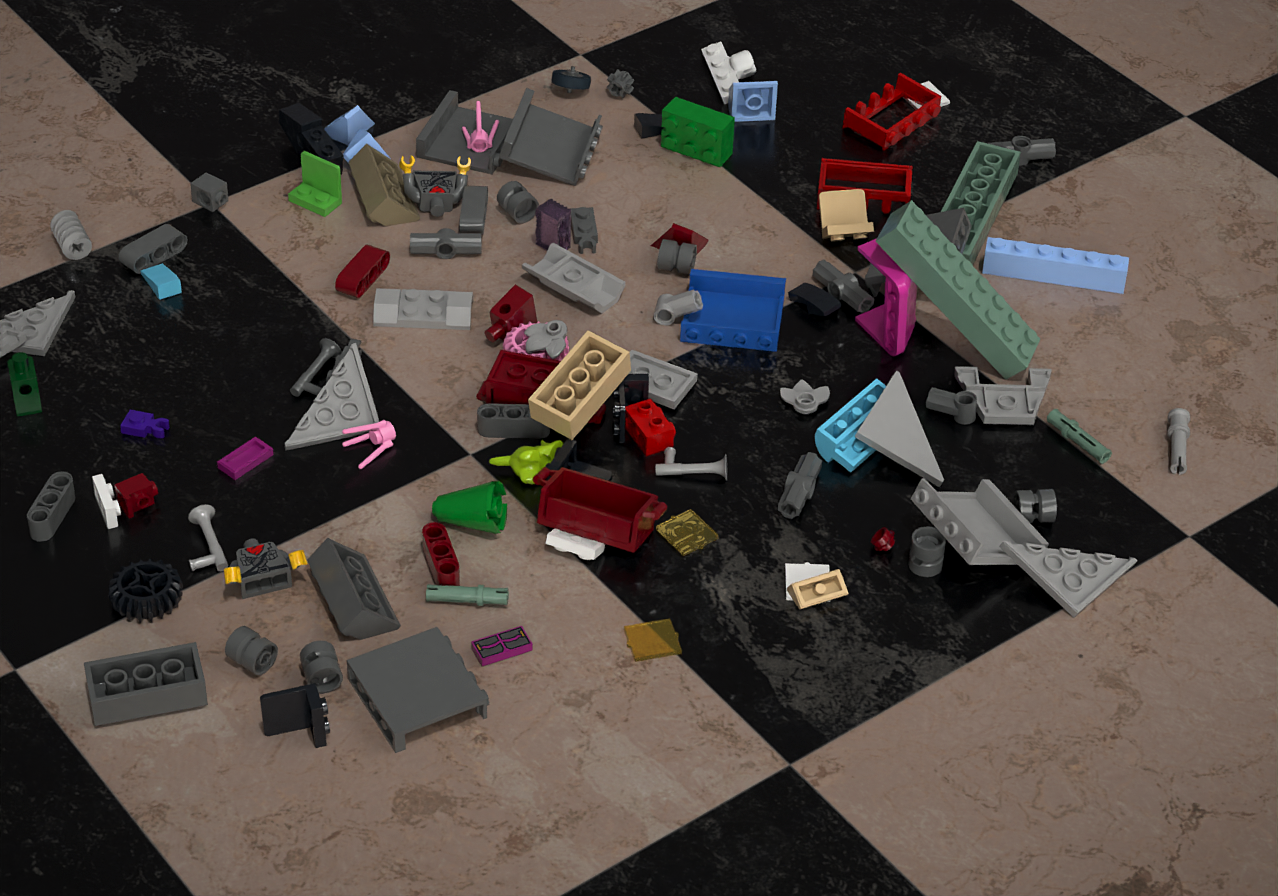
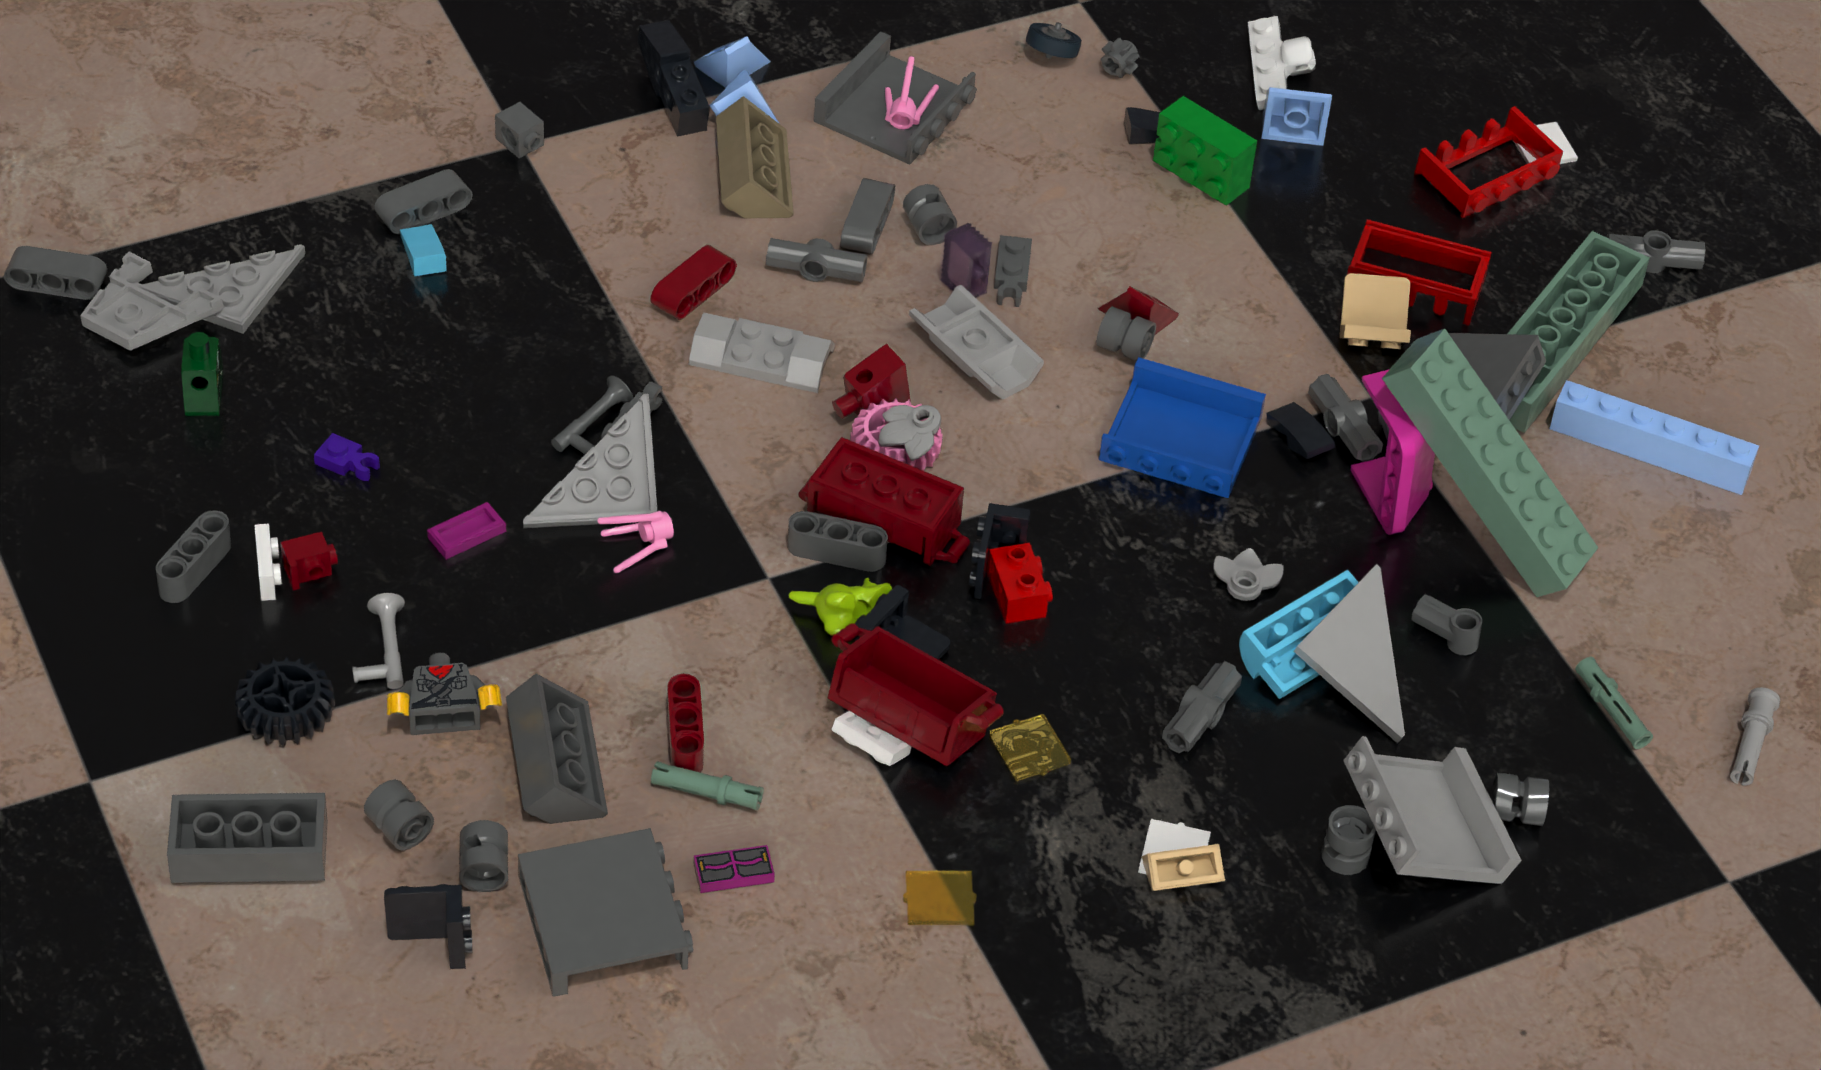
camera: 10 degrees right, 5 degrees up
(70, 235) = (319, 163): light grey piece -> none
(320, 185) = (669, 148): bright green bracket -> none
(434, 189) = (822, 176): dark grey torso -> none
(473, 507) = (749, 661): green cone -> none
(549, 142) = (997, 131): dark grey panel -> none
(579, 385) = (929, 512): tan brick -> none
(666, 381) = (1057, 516): light grey plate -> none
(671, 307) = (1101, 408): light grey piece -> none
(672, 468) = (1033, 649): light grey piece -> none
(883, 539) = (1294, 809): dark red plate -> none
(1006, 402) = (1525, 633): light grey wing -> none
(1067, 574) = (1539, 910): light grey tile -> none

